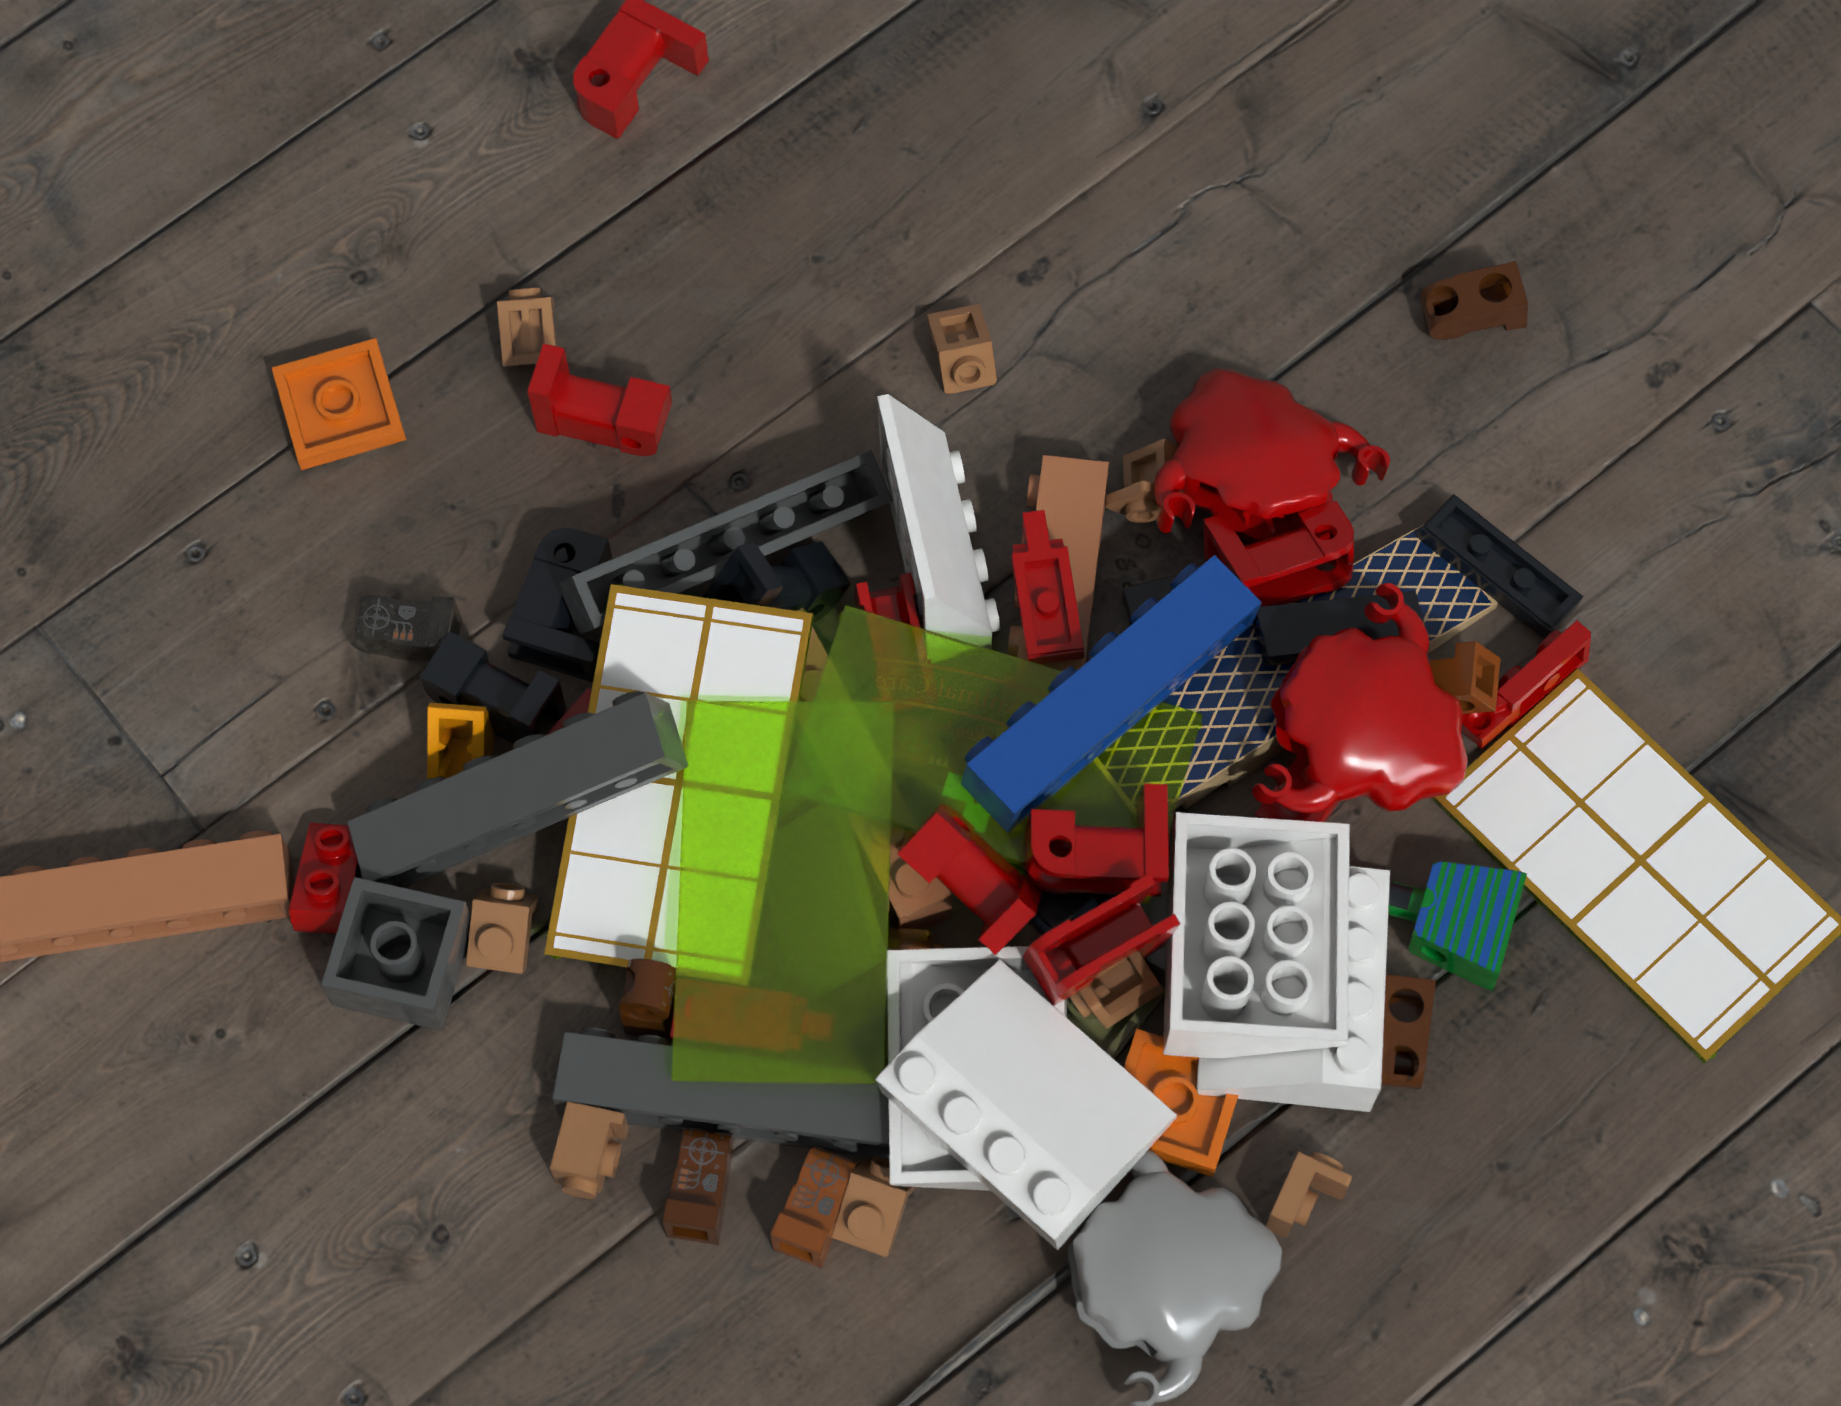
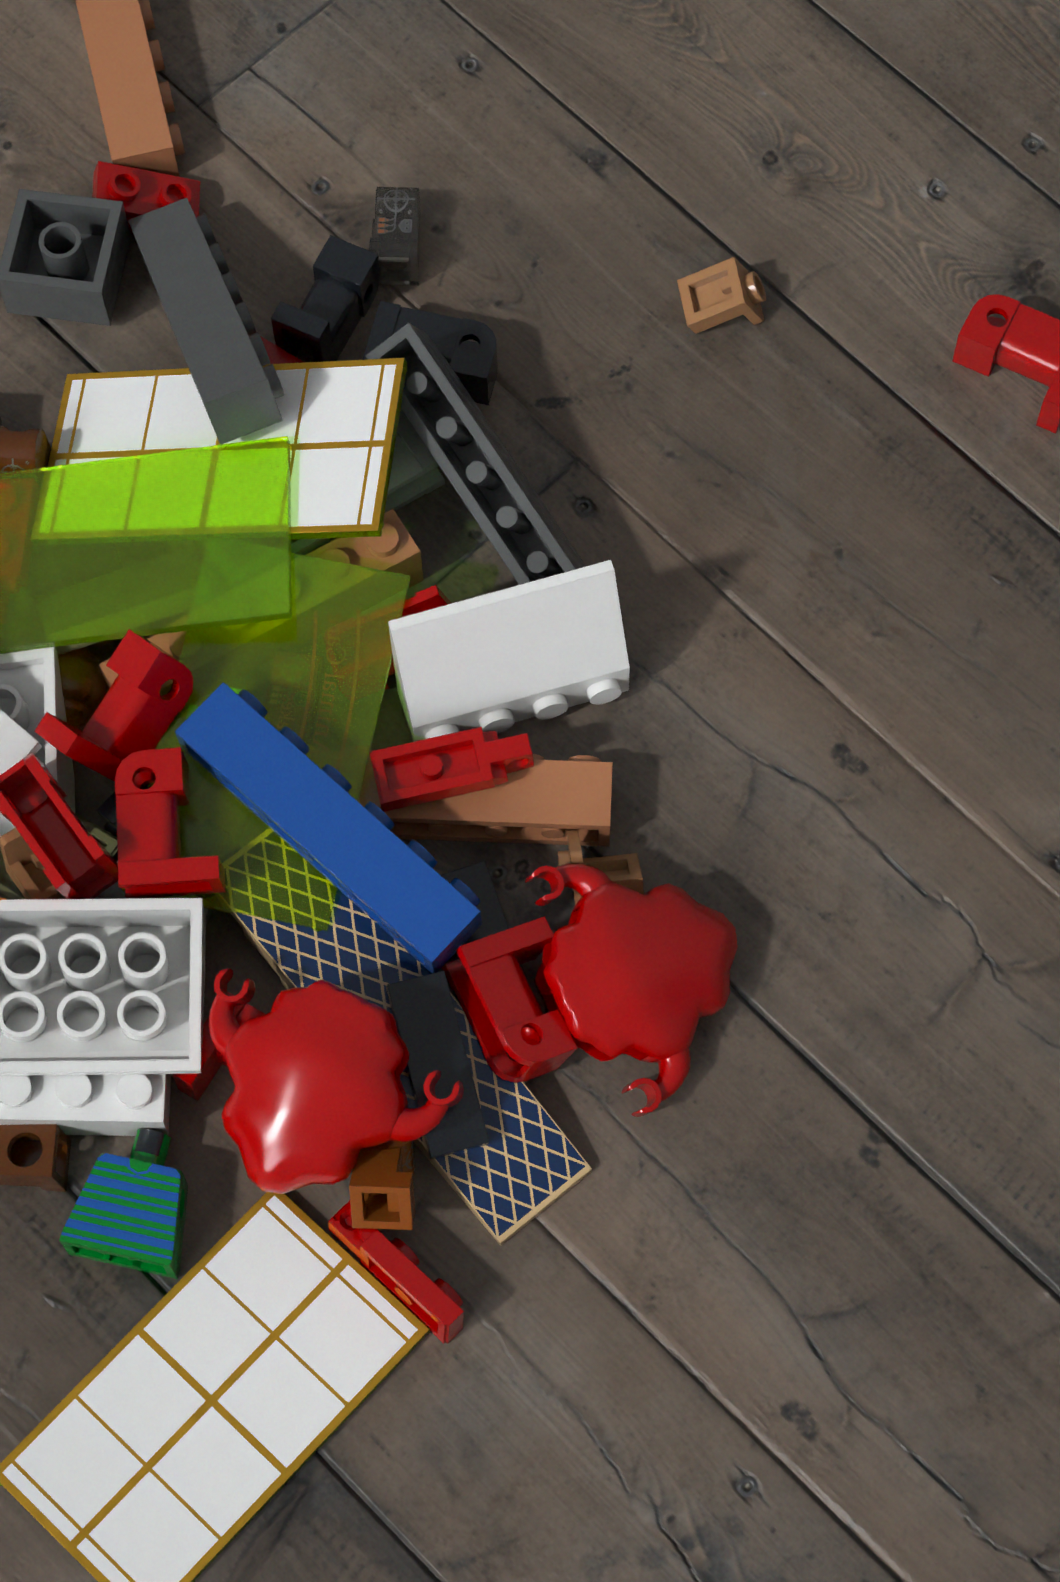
camera: 85 degrees right, 0 degrees up
(338, 404) = (624, 150): orange plate -> none
(456, 737) = (271, 279): light orange slope -> none
(501, 928) = (103, 342): medium nougat bracket -> none
(596, 410) = (643, 339): red piece -> none
(804, 580) = (450, 550): black piece -> none
(963, 348) = (743, 686): medium nougat bracket -> none
(1475, 302) = (854, 1204): reddish brown leg -> none
(1499, 566) = (539, 1241): black tile -> none

